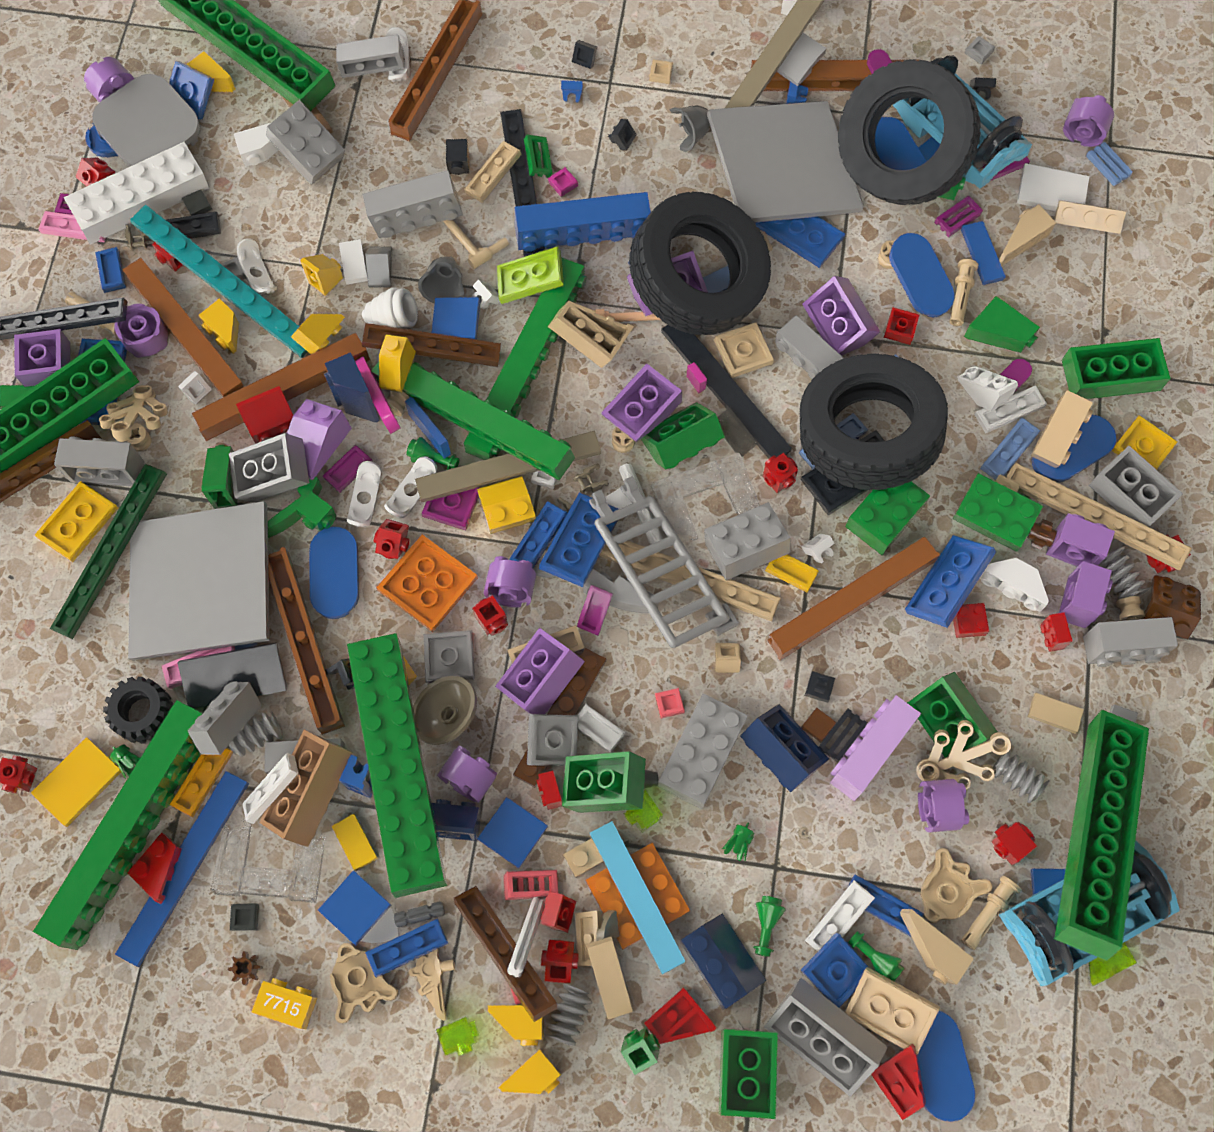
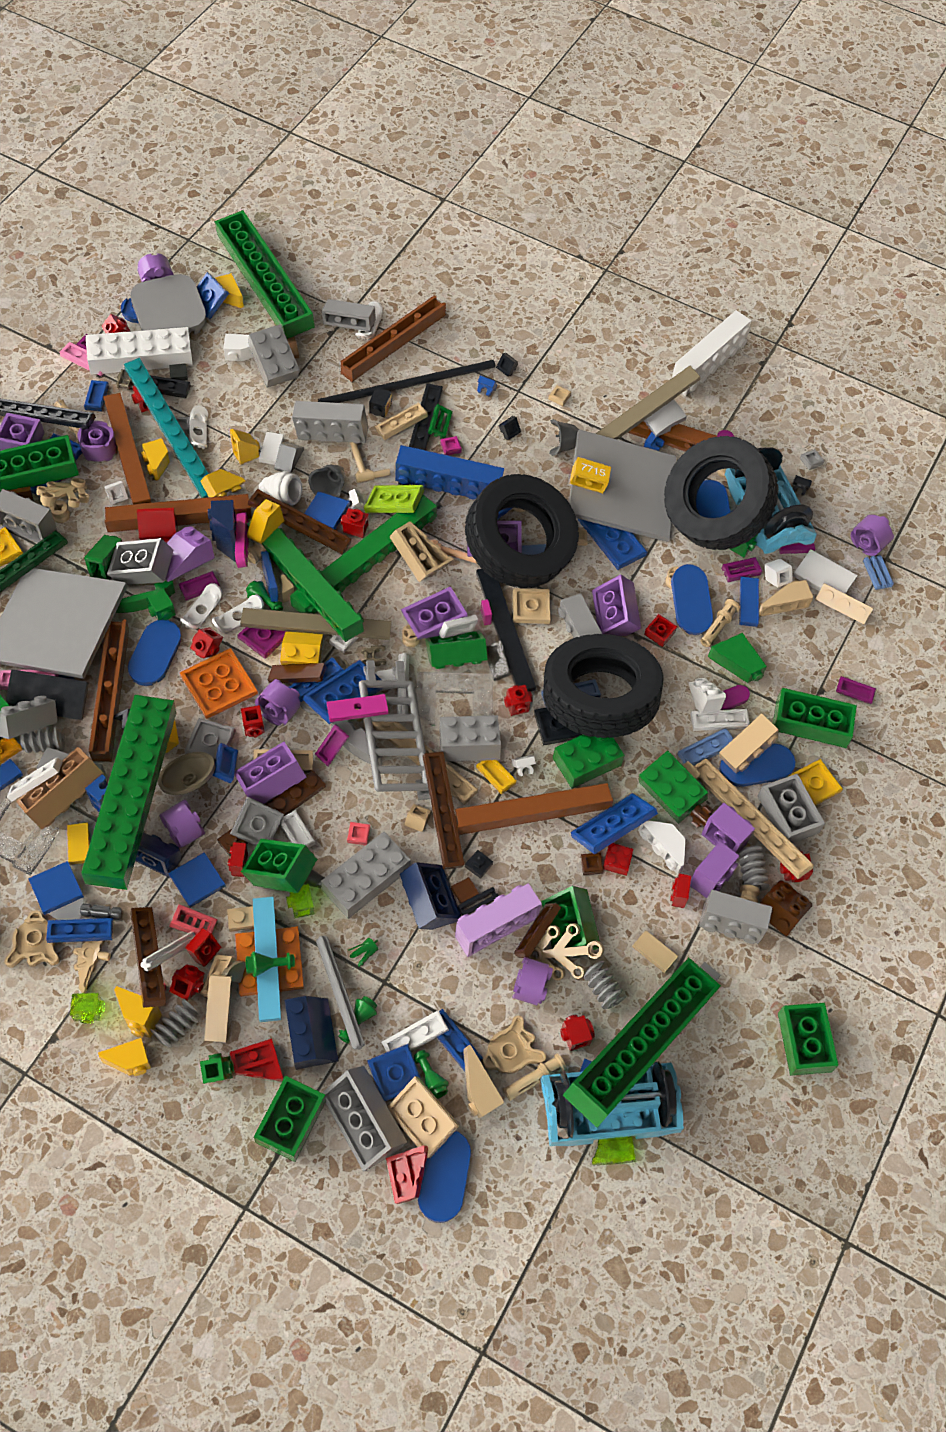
camera: 15 degrees right, 10 degrees down
(454, 434) = (287, 588): none -> tan slope
(475, 120) = (410, 382): none -> black piece
(482, 679) = (225, 763): none -> blue tile
(497, 321) = (355, 522): none -> red brick
(514, 536) = (297, 673): none -> reddish brown tile
(621, 549) = (367, 706): none -> dark pink tile
(635, 909) = (260, 963): none -> green piece
(675, 408) = (458, 626): none -> white tile
(736, 903) = (340, 993): none -> light grey axle
(748, 163) = (590, 475): none -> yellow brick
(755, 640) = (443, 810): none -> reddish brown plate
(923, 743) = (537, 930): none -> reddish brown tile
(943, 638) = (591, 864): none -> reddish brown tile
(1004, 206) = (778, 573): none -> white brick
(1143, 317) = (856, 690): none -> magenta tile

